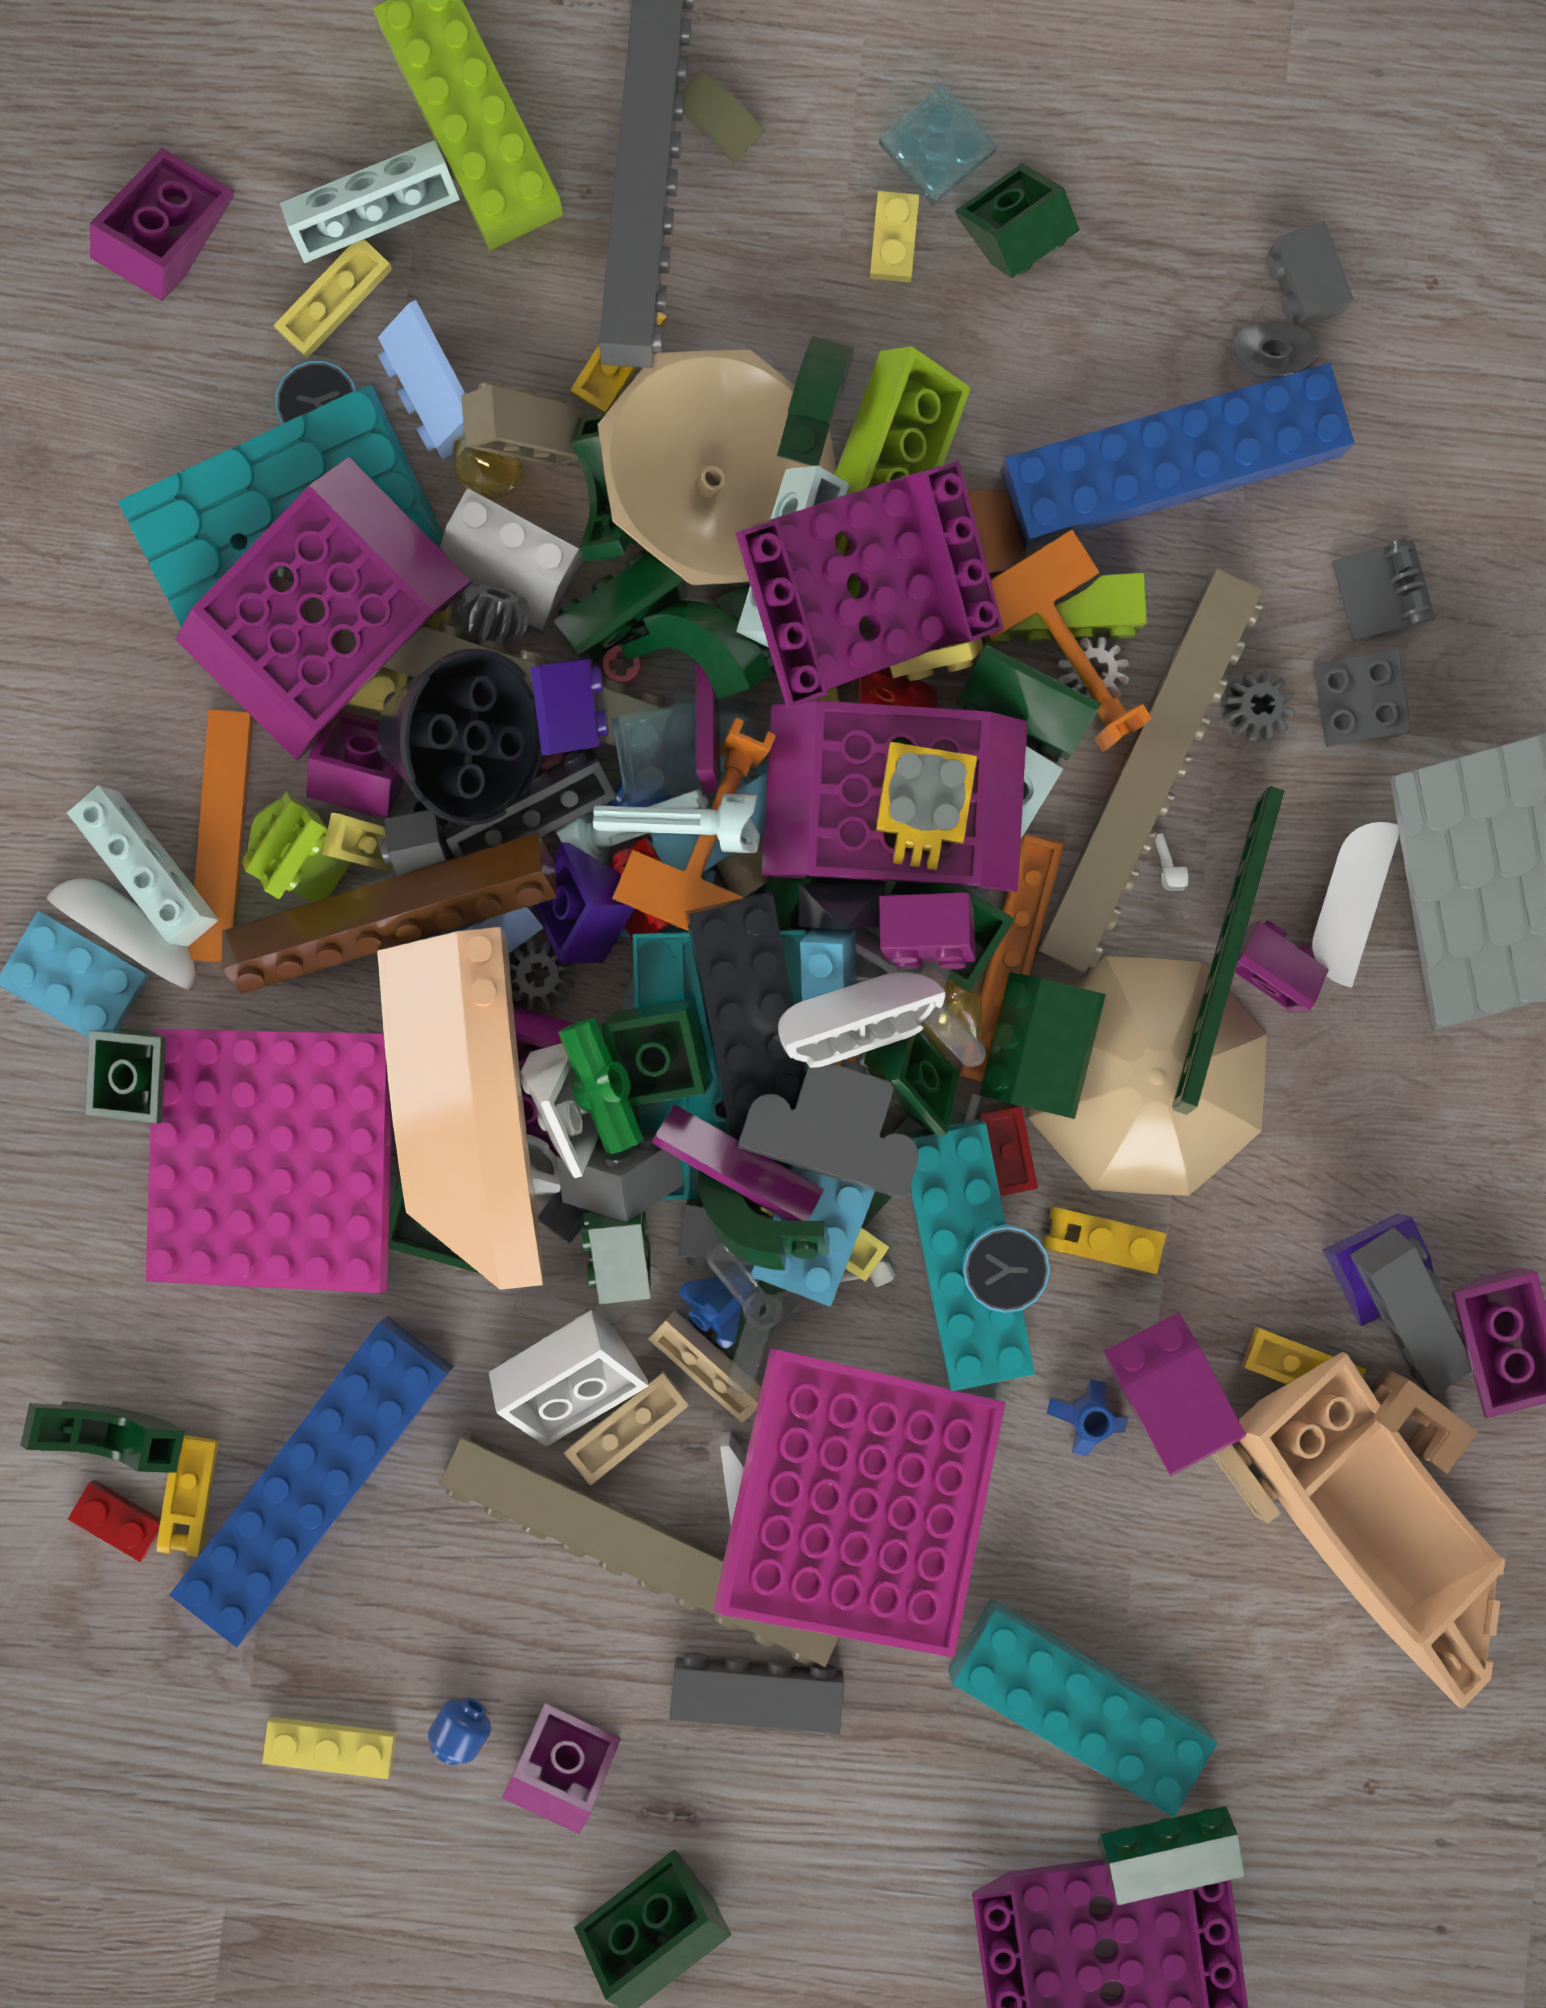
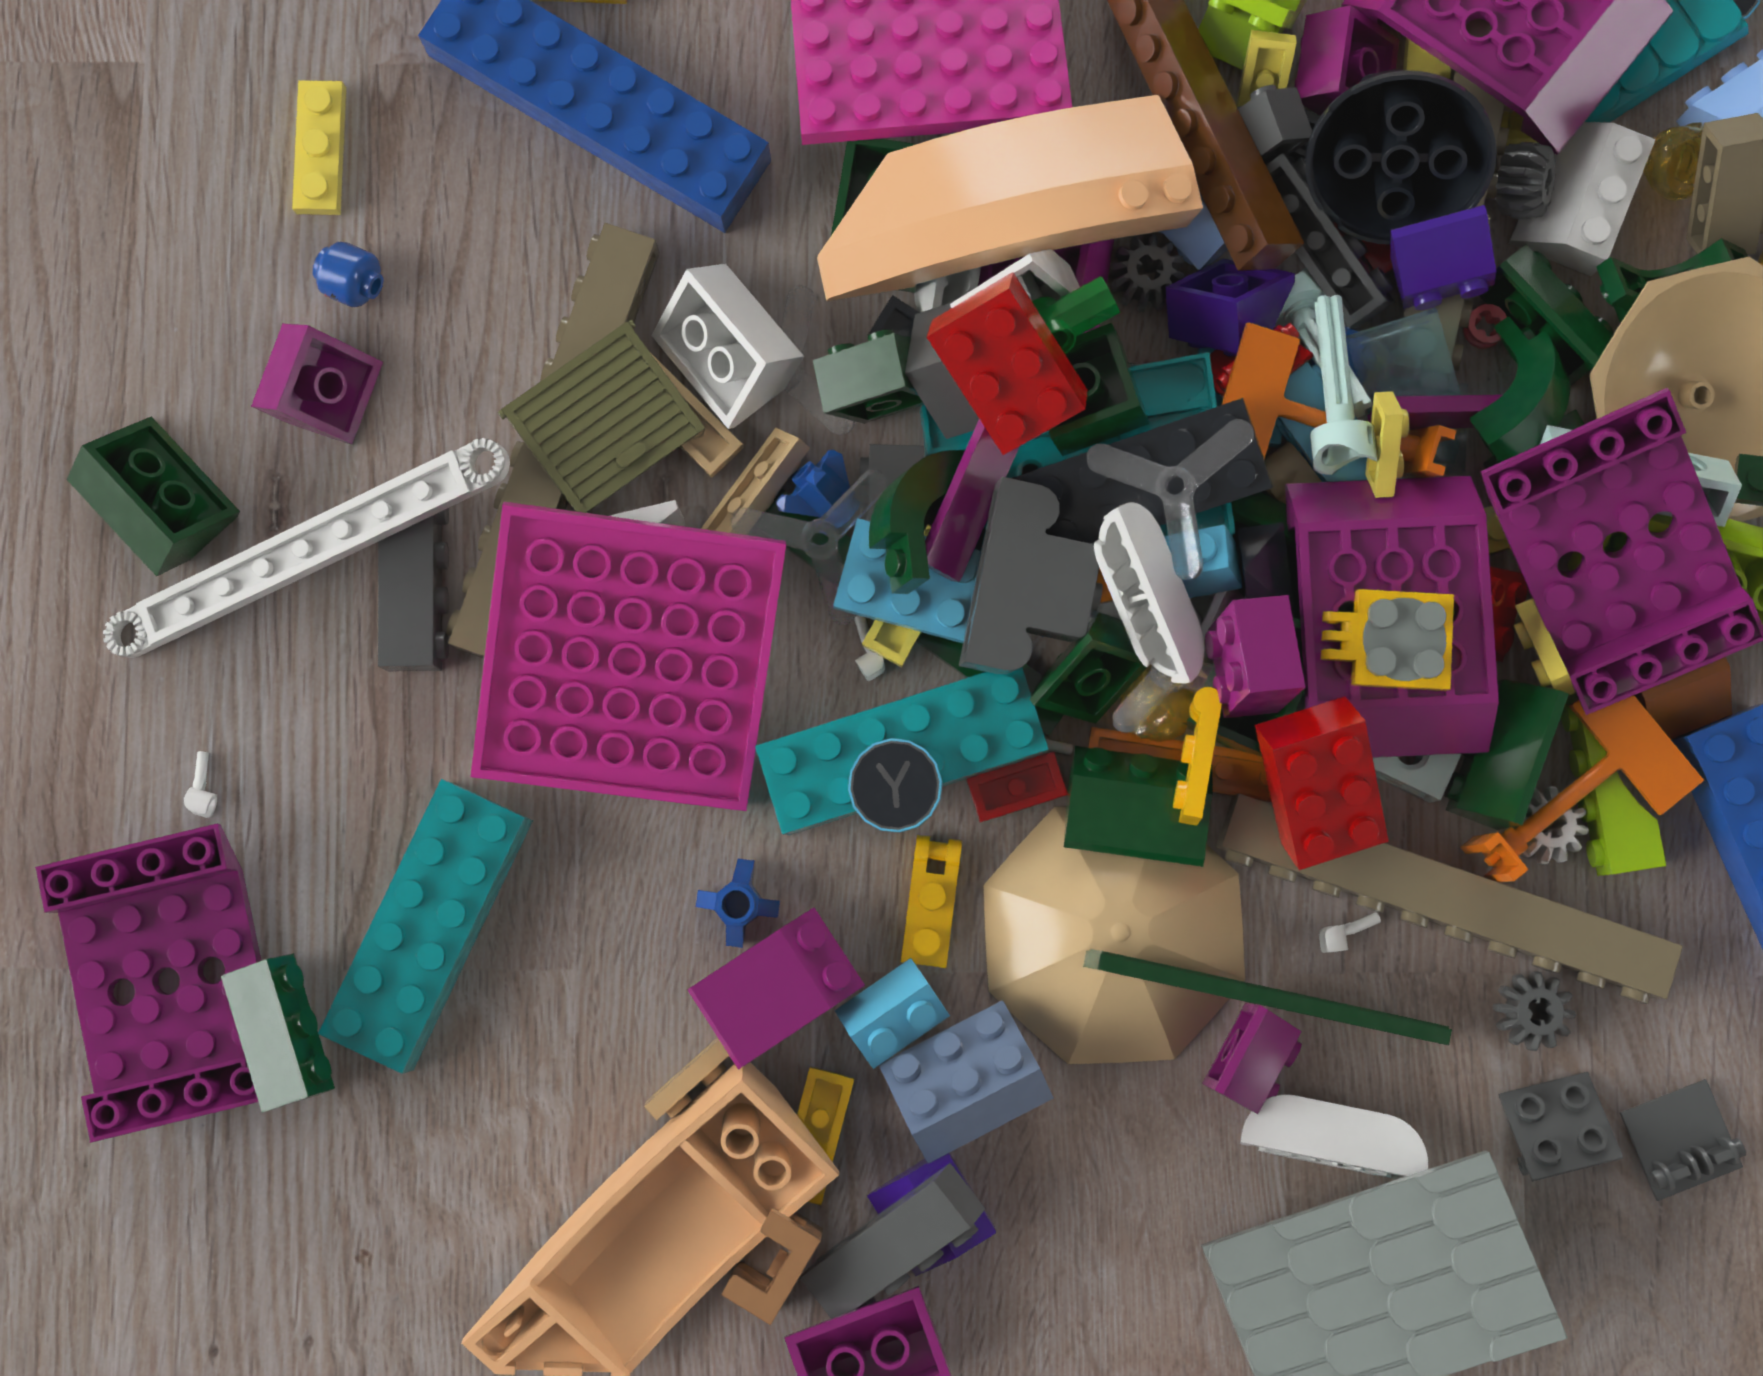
camera: 85 degrees right, 5 degrees down
(628, 1503) = (603, 418): none -> olive piece
(638, 1131) = (1007, 364): none -> red brick
(722, 1792) = (306, 548): none -> white plate
(727, 780) = (1390, 426): none -> light yellow plate
(751, 969) = (1180, 507): none -> clear piece
(941, 1910) = (196, 799): none -> white hand
(1006, 989) = (1198, 752): none -> yellow plate
(1046, 880) = (1322, 782): none -> red brick
(1204, 1288) = (891, 1013): none -> medium azure brick
(1274, 1230) = (965, 1081): none -> sand blue brick

